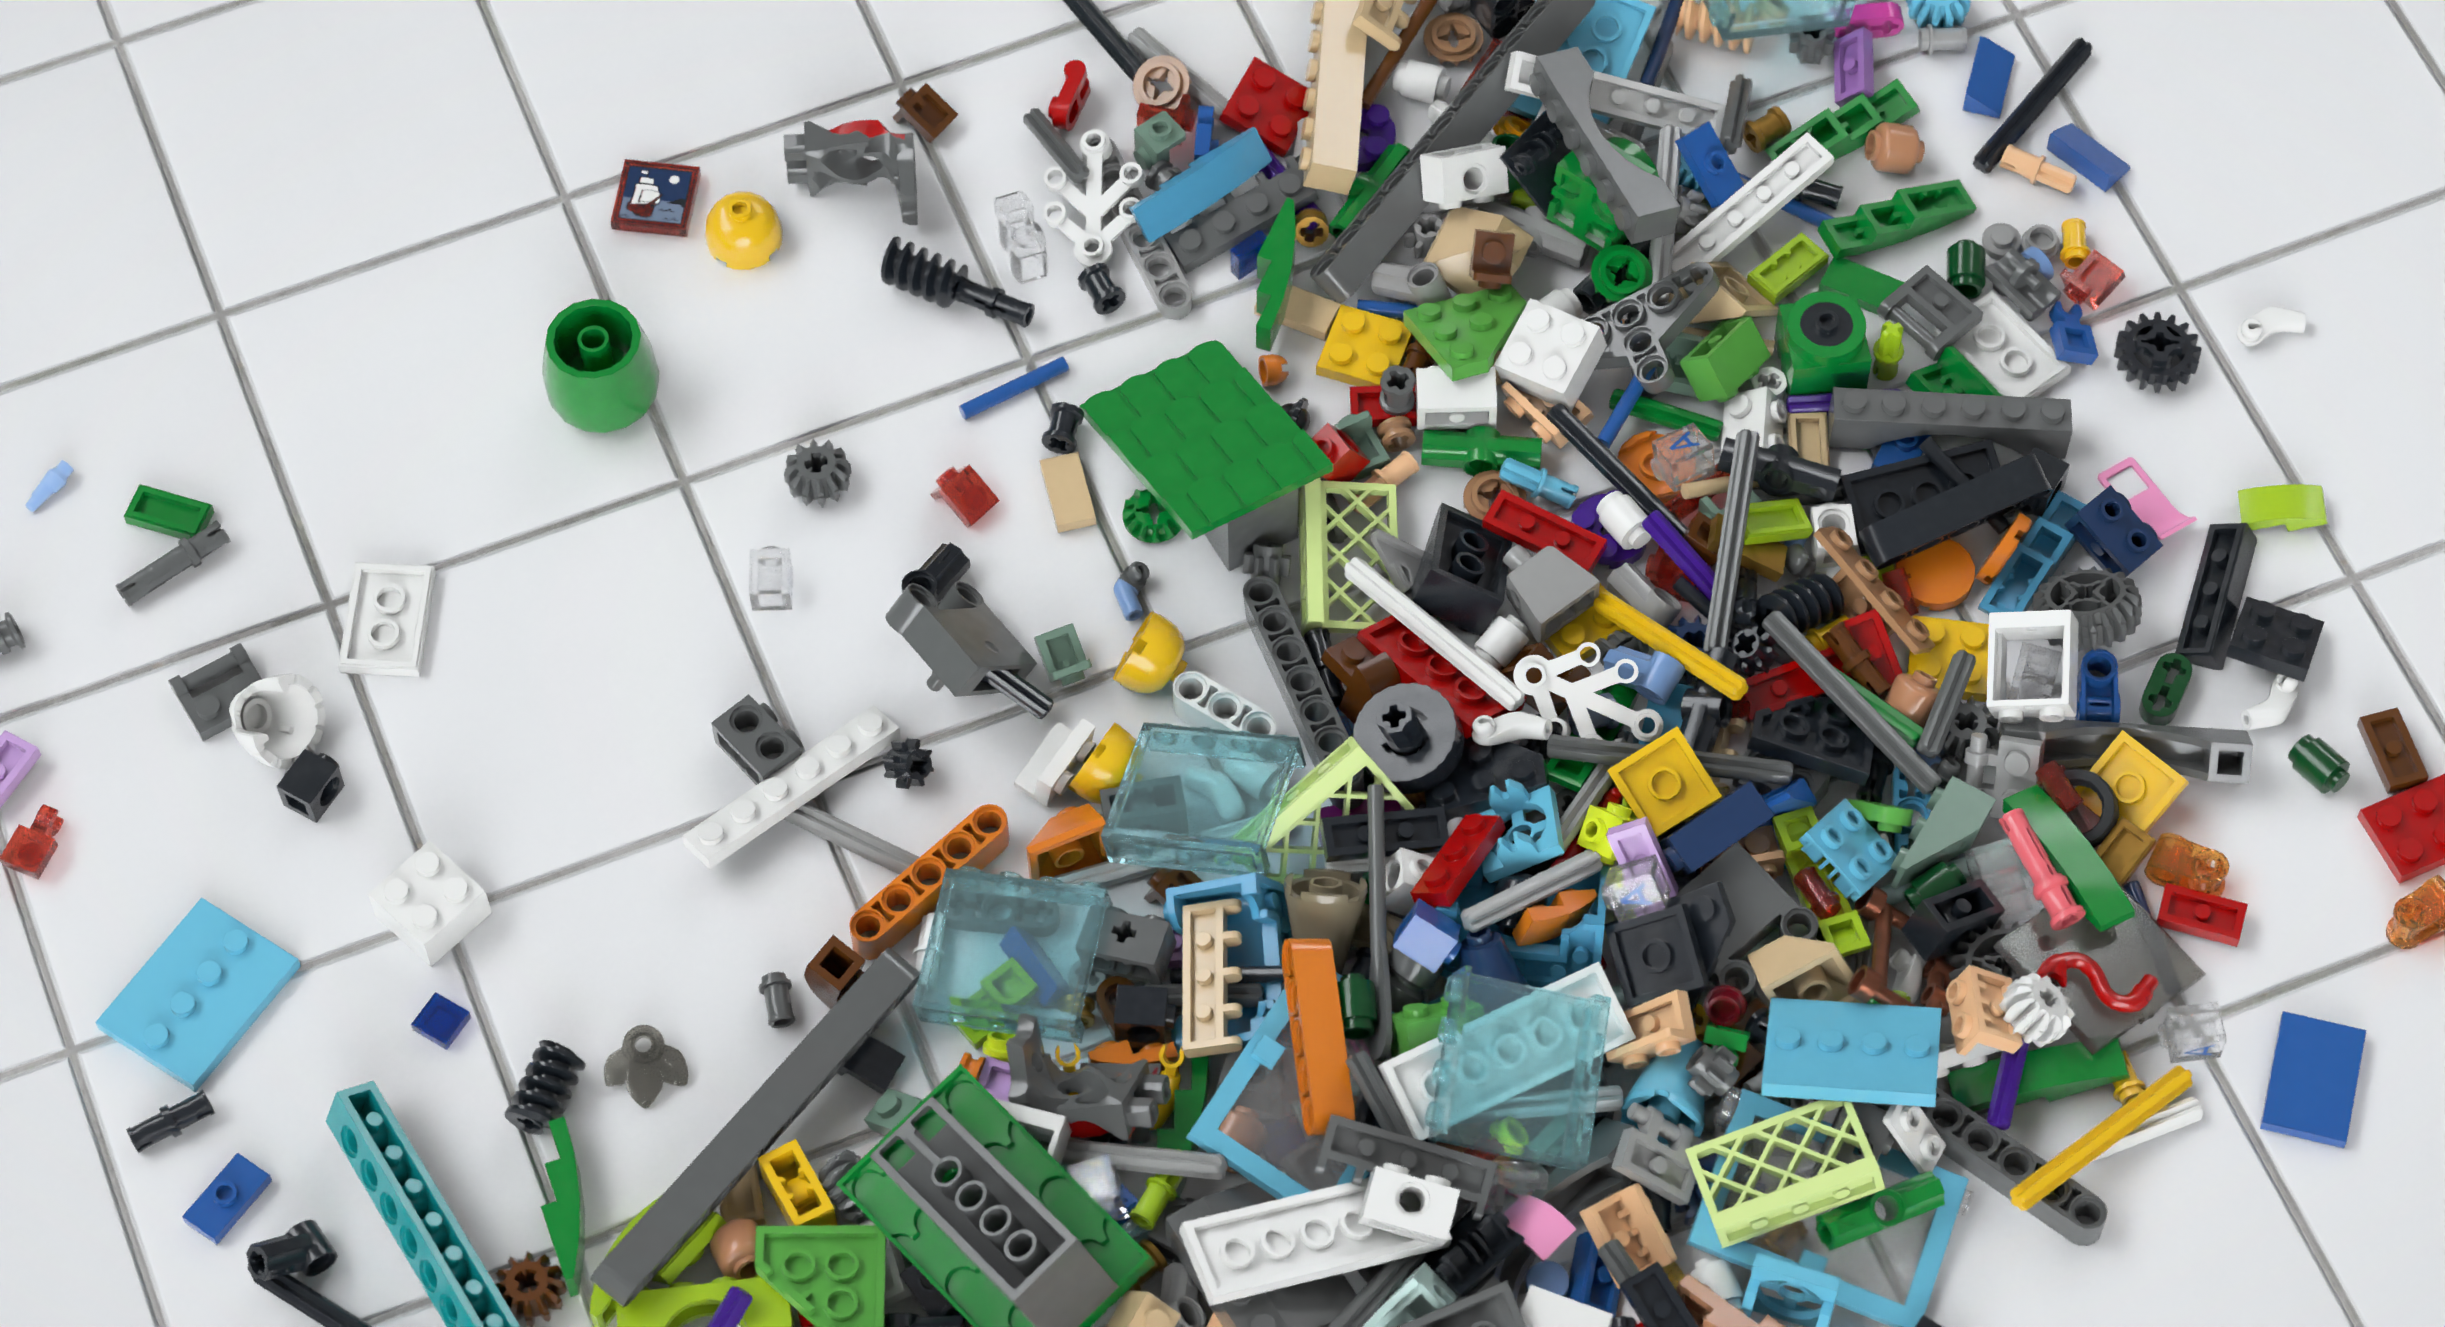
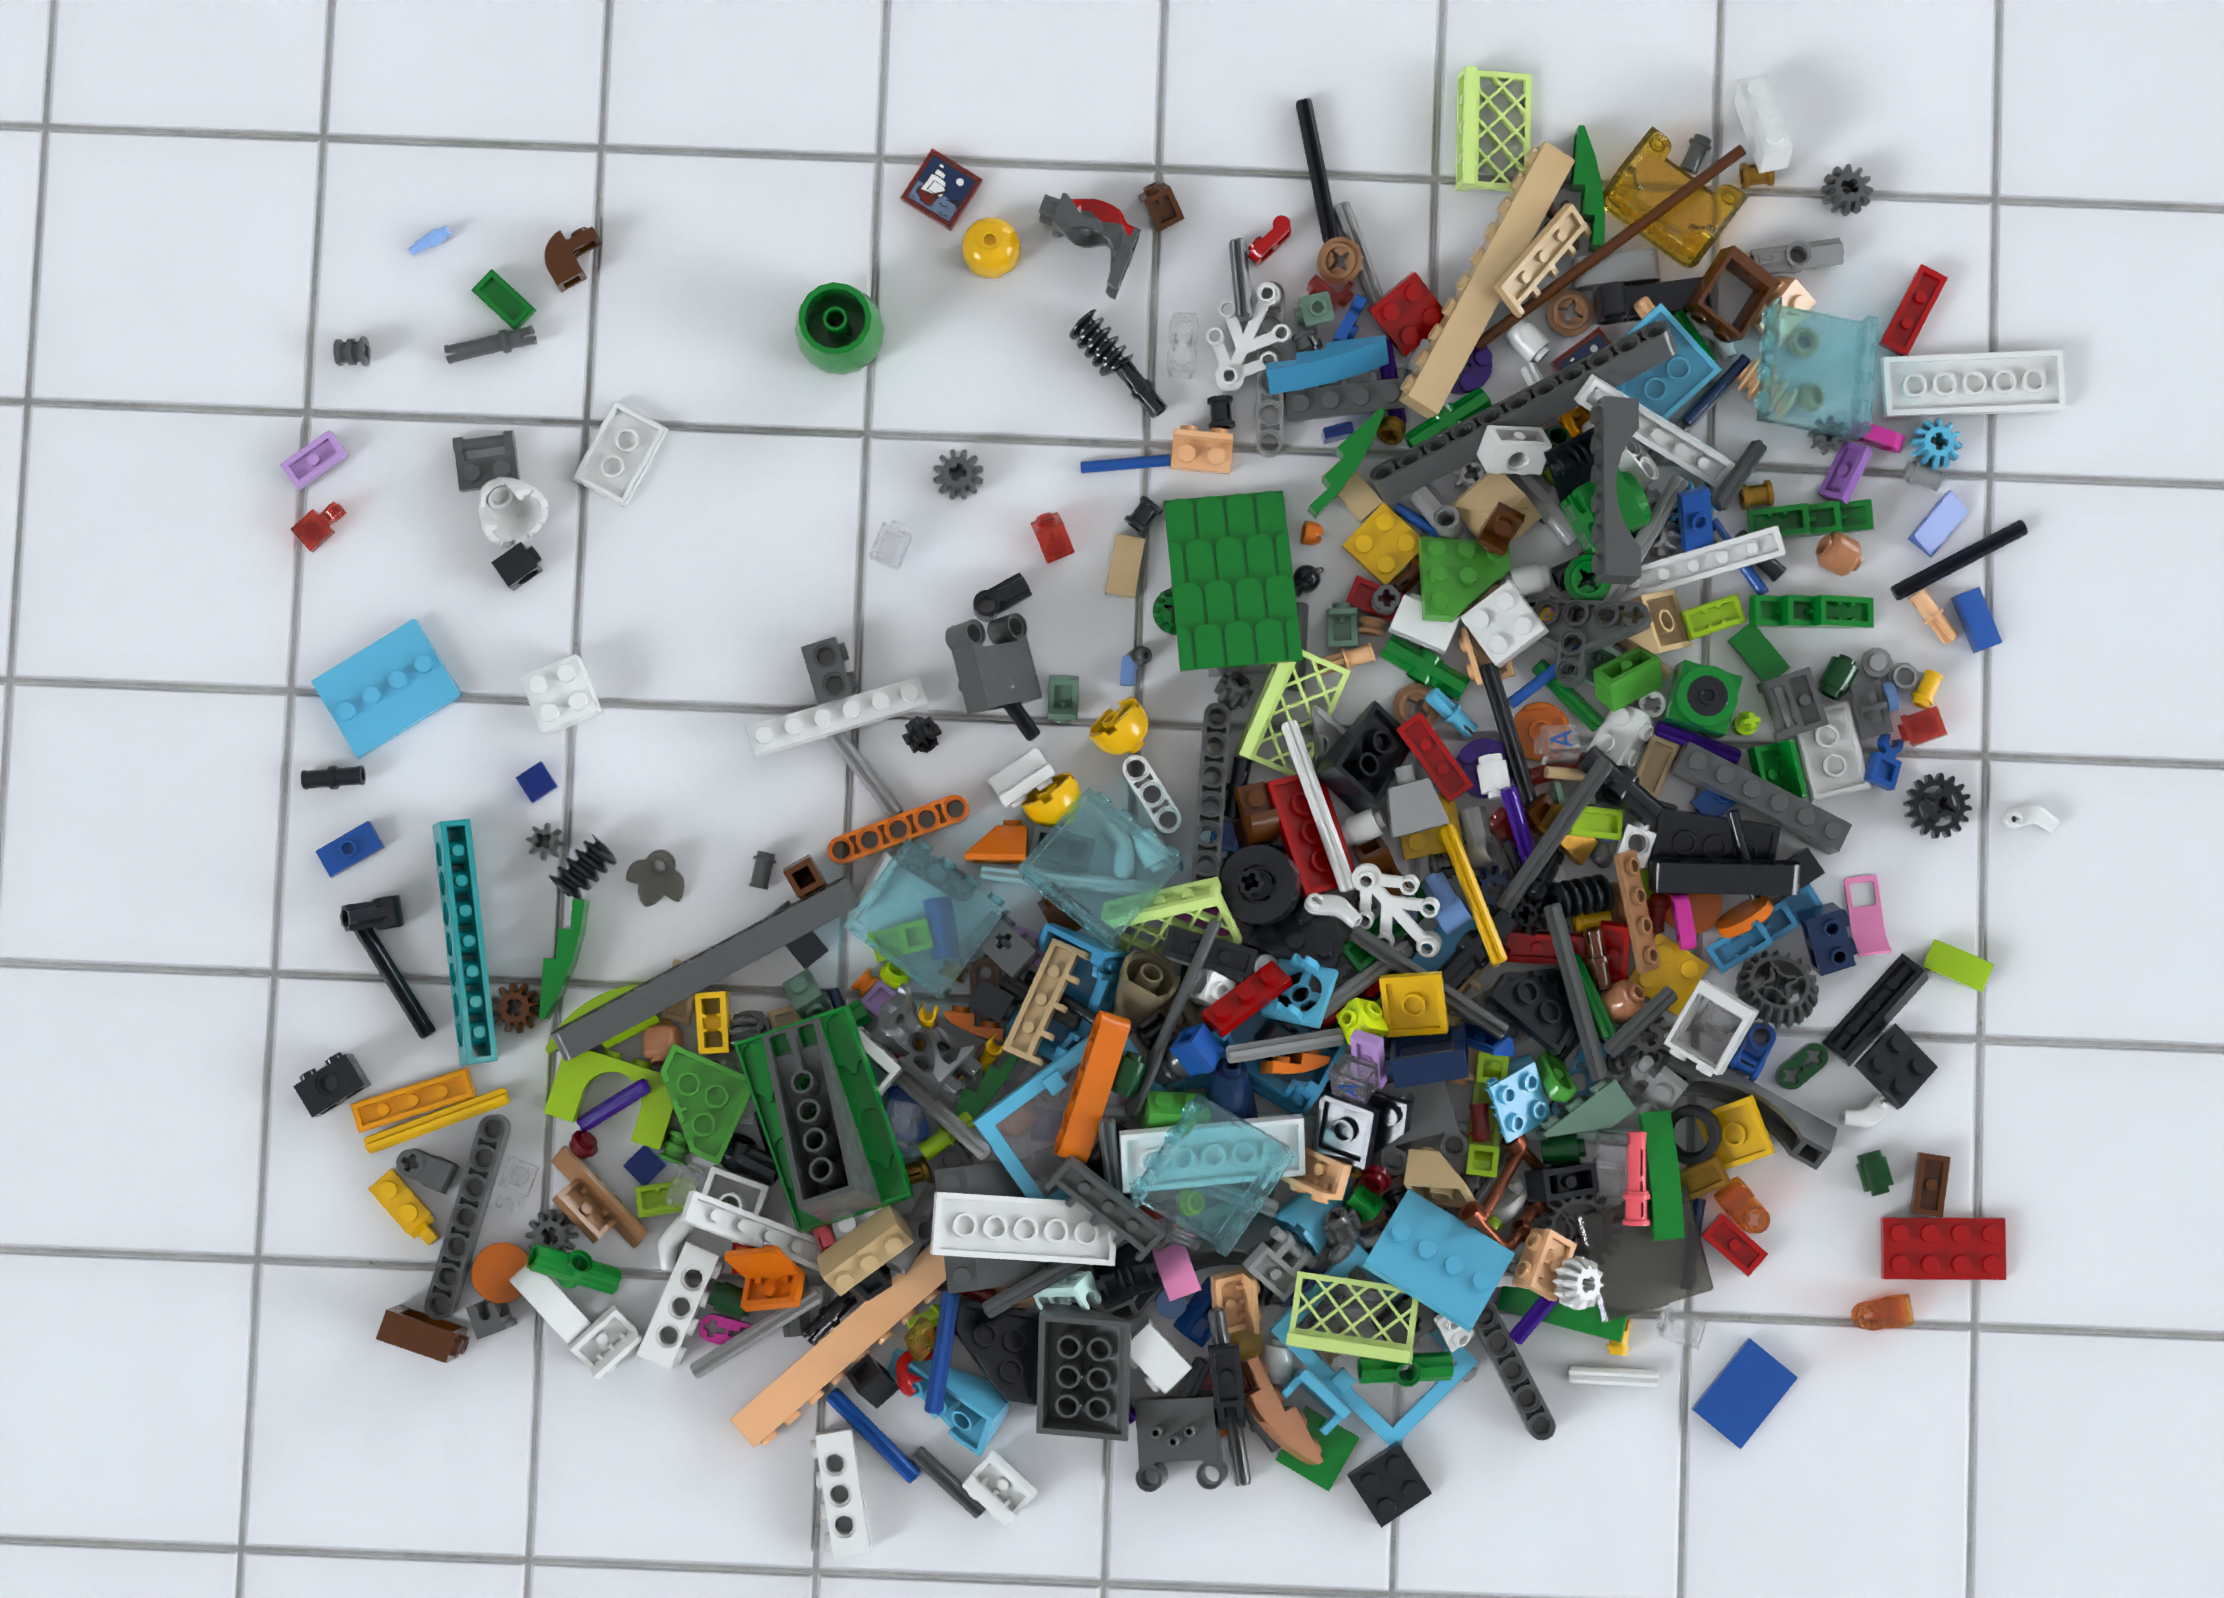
camera: 25 degrees right, 25 degrees up
(228, 432) = (562, 256): none -> reddish brown brick
(485, 1089) = (537, 841): none -> dark grey gear
(1098, 335) = (1202, 450): none -> light nougat bracket
(1342, 451) = (1319, 632): red brick -> none
(1383, 1210) = (1100, 1257): white brick -> none
(1935, 584) = (1683, 921): none -> dark pink beam
(2058, 786) = (1682, 1121): clear red pin -> none
(2100, 1138) = (1577, 1380): yellow axle -> none
(2136, 1000) = (1649, 1297): red animal -> none

